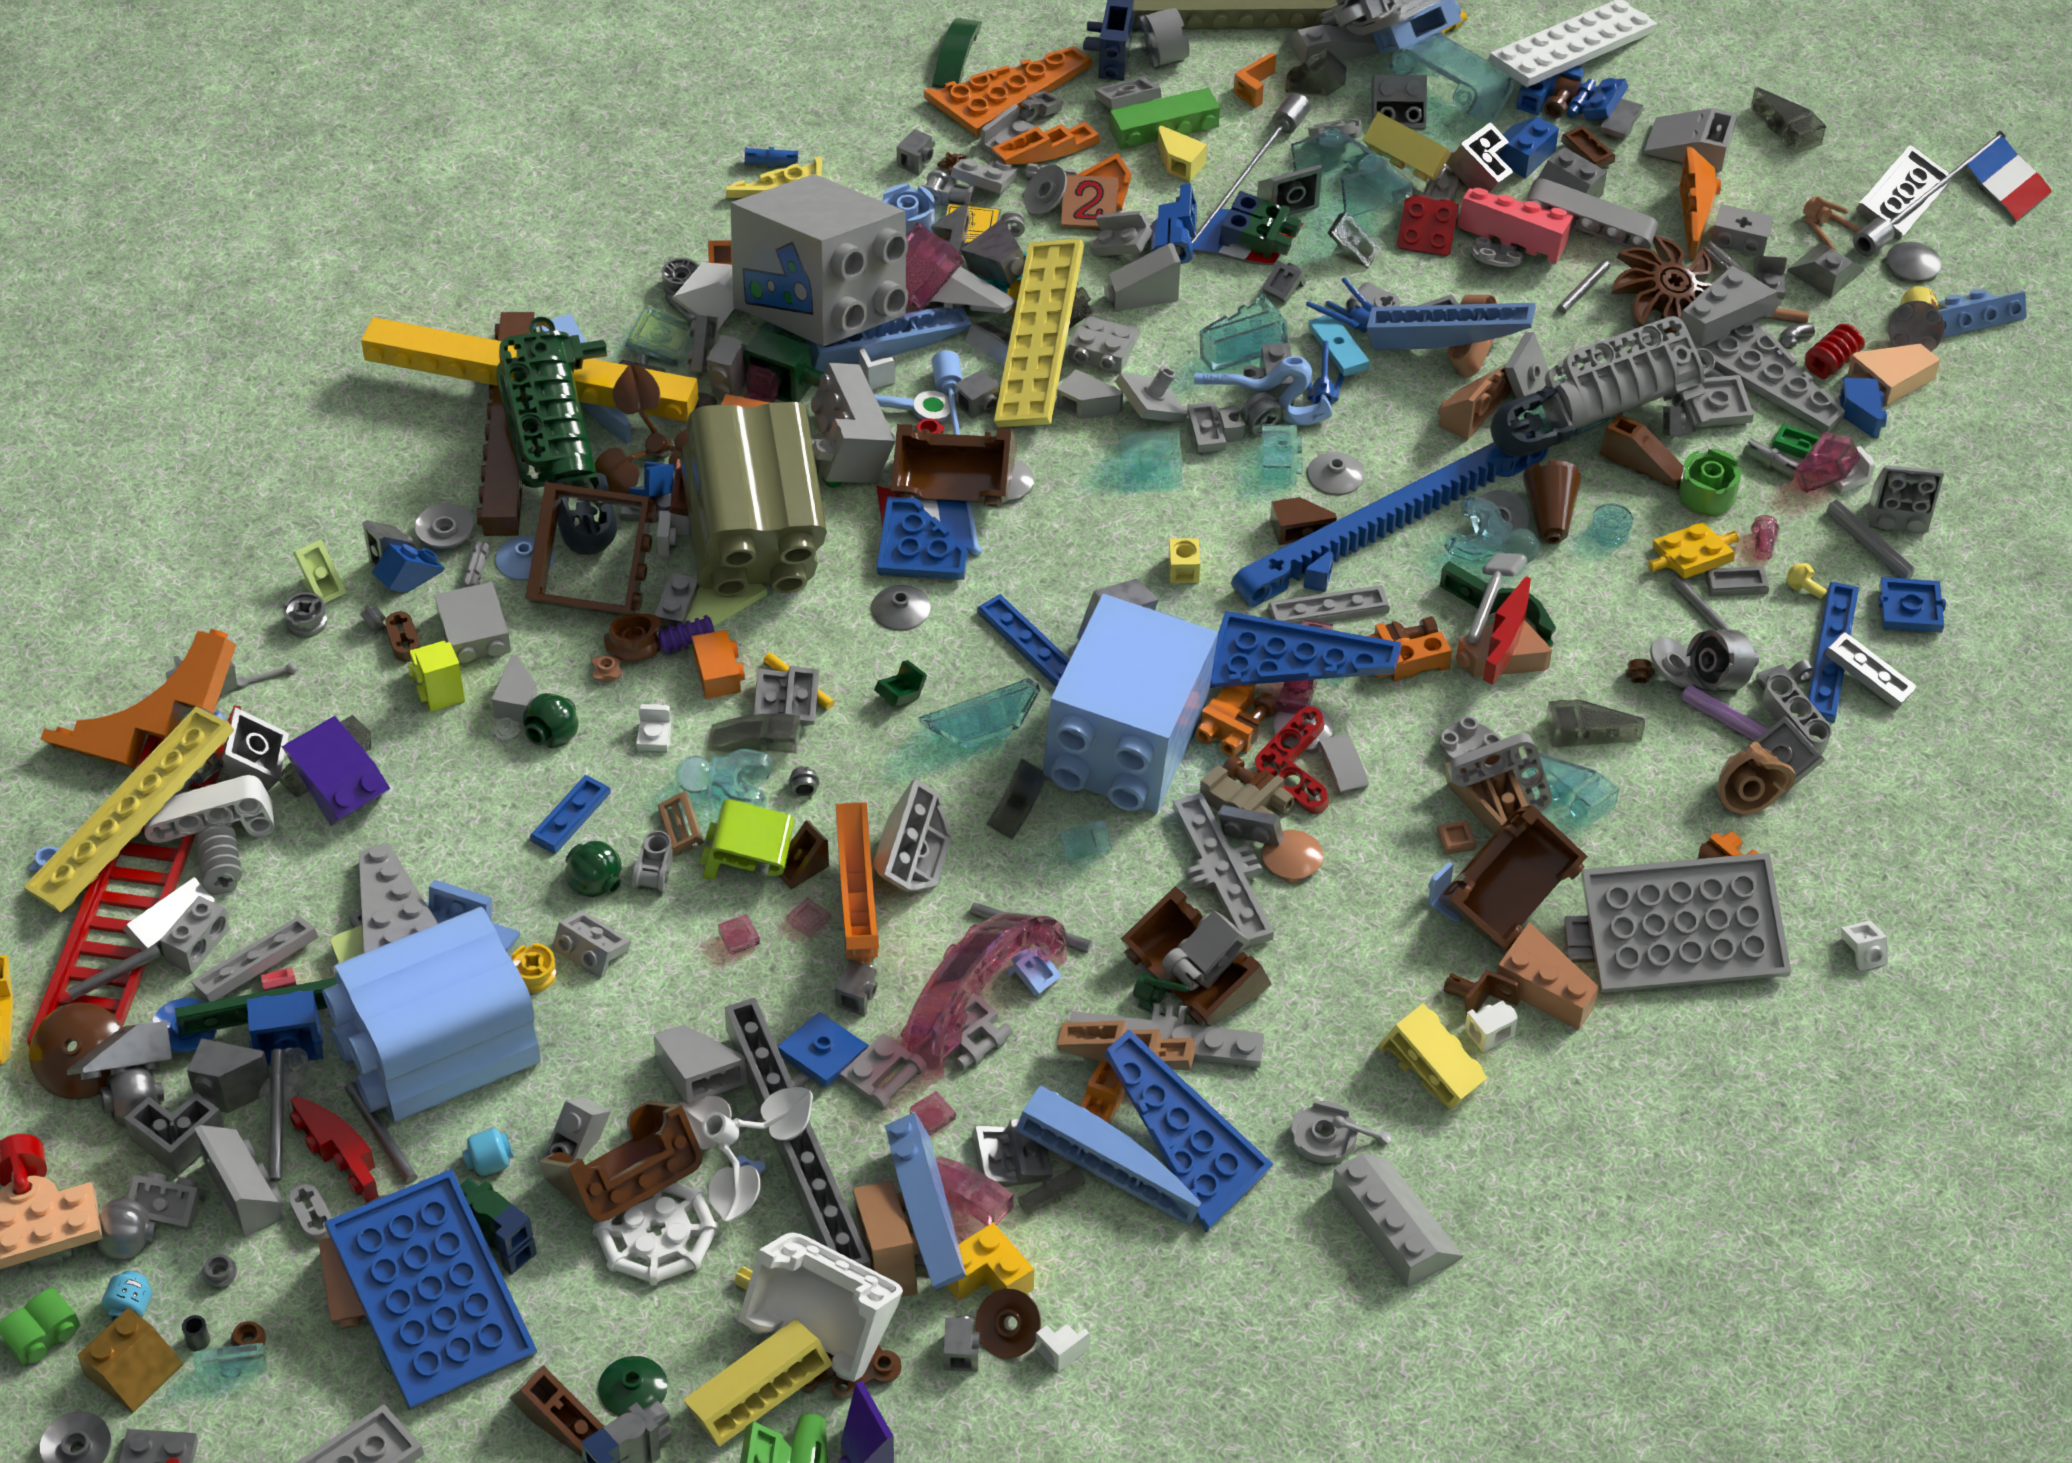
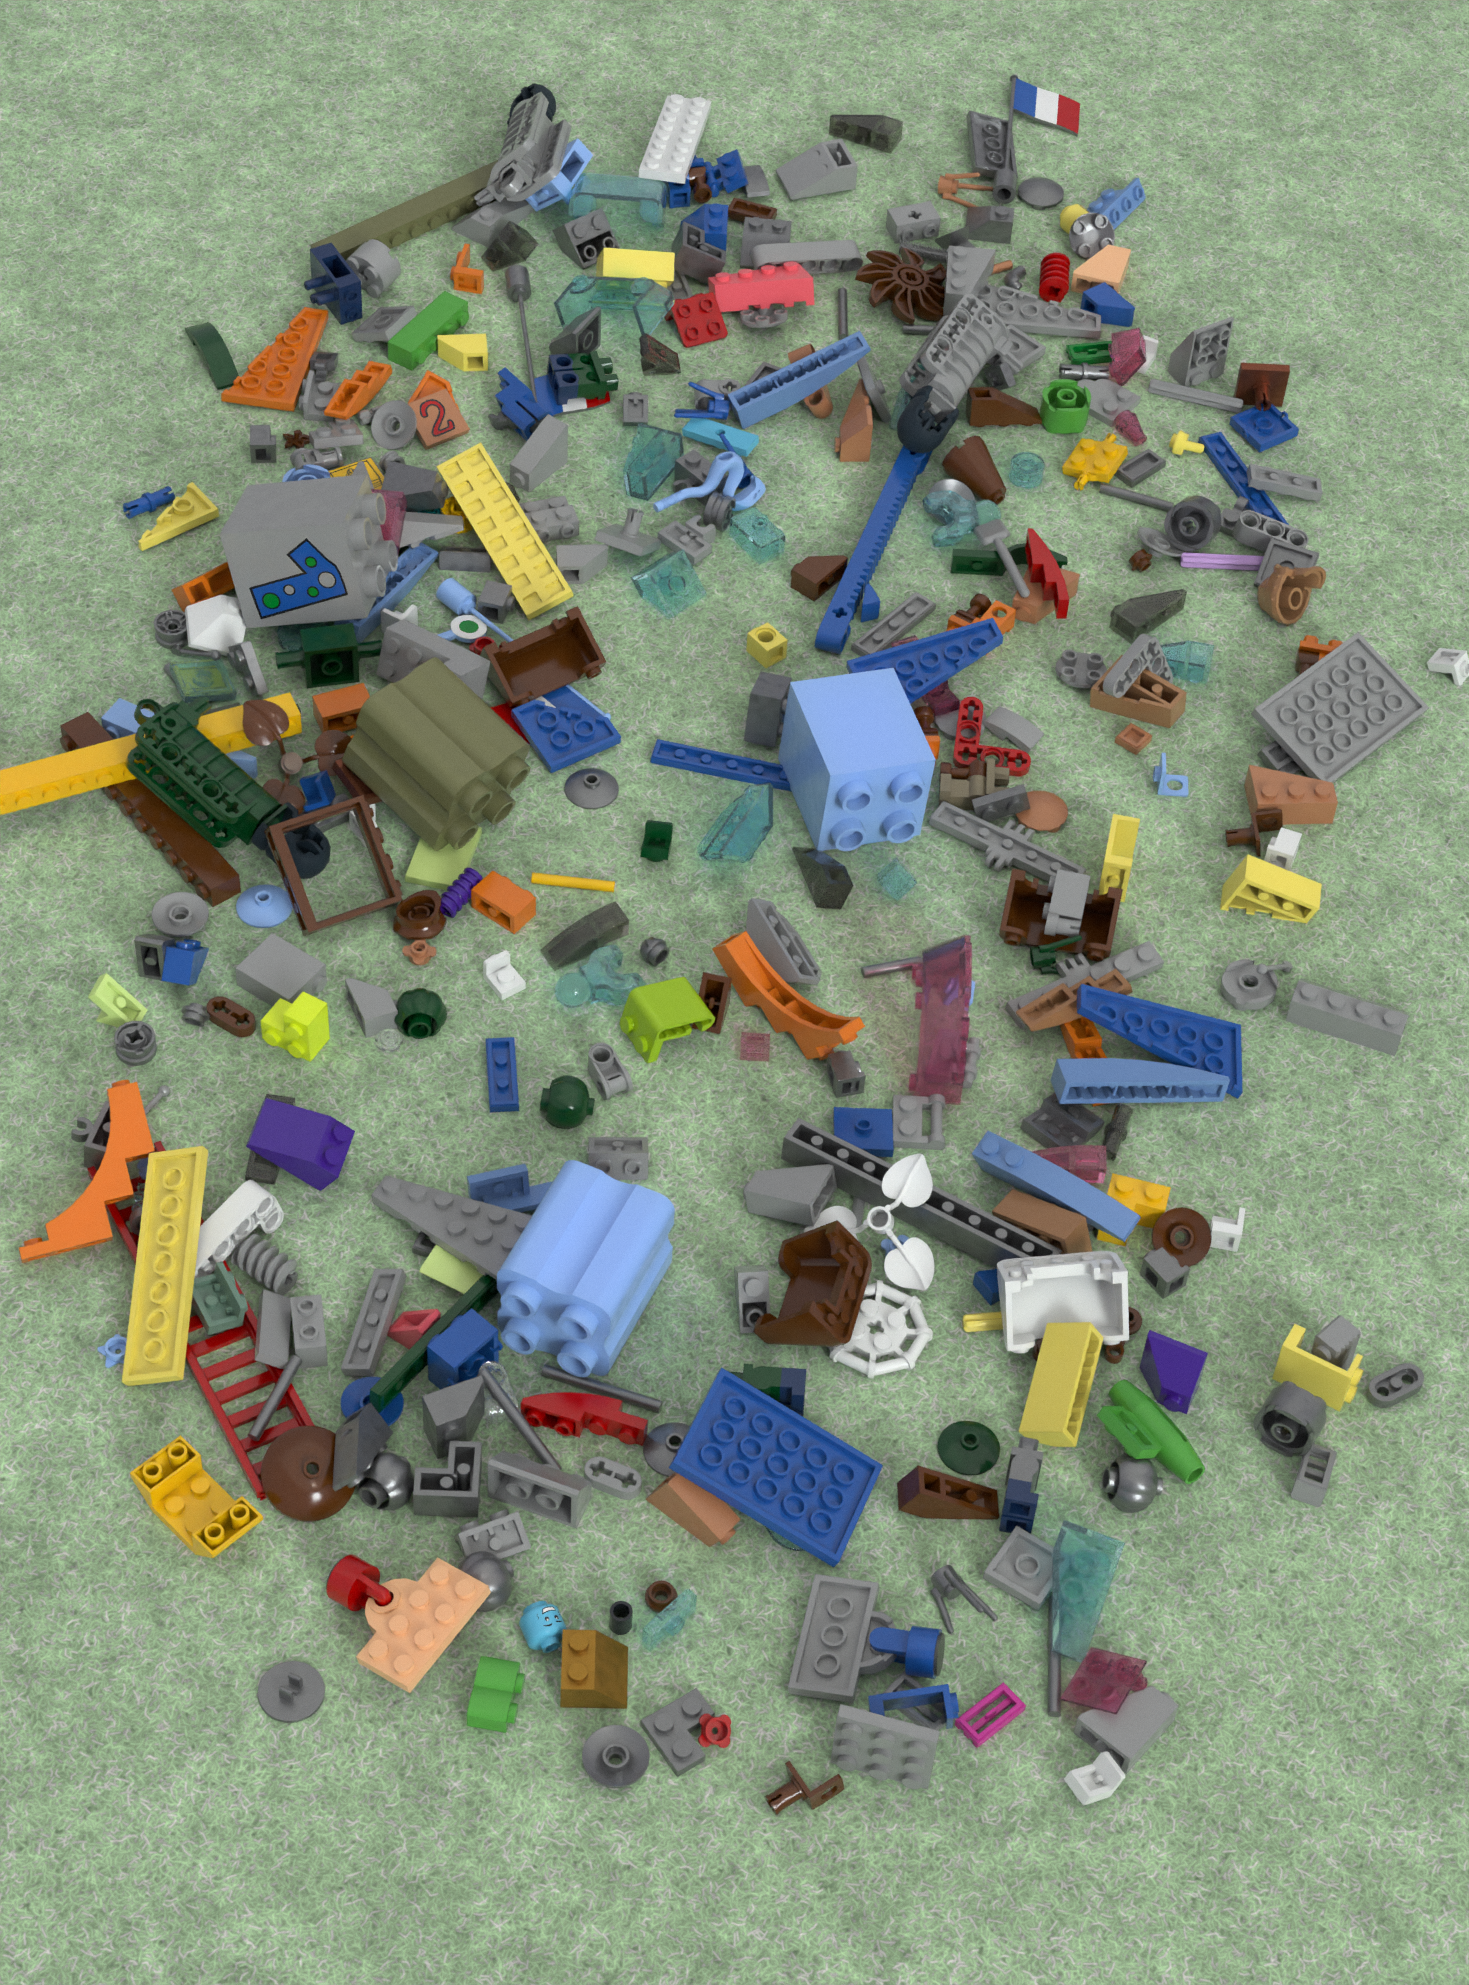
camera: 40 degrees left, 0 degrees up
(147, 863) = (218, 1301): none -> sand green bracket
(216, 1263) = (587, 1555): flat silver plate -> none
(254, 749) = (225, 1165): flat silver slope -> none
(476, 564) = (234, 932): light grey axle -> none
(488, 1152) = (703, 1350): medium azure head -> none
(677, 599) = (425, 870): flat silver plate -> none
(687, 841) = (573, 1021): medium nougat tile -> none
(727, 366) = (291, 673): light grey brick -> none
(738, 934) = (720, 1086): clear pink plate -> none
(761, 384) = (326, 676): clear pink bracket -> none
(787, 693) = (577, 894): flat silver slope -> none
(933, 1112) = (982, 1123): clear pink plate -> none
(1121, 233) = (489, 427): light grey bracket -> none
(1320, 916) = (1120, 843): none -> light yellow panel
(1336, 473) = (804, 530): light grey dish -> none
(1352, 128) = (558, 283): light grey plate -> none
(1512, 876) = (1206, 738): reddish brown windscreen -> none
(1697, 193) = (863, 214): orange wedge -> none
(1770, 495) = (1108, 399): none -> light grey plate
(1940, 560) = (1262, 384): none -> copper tile

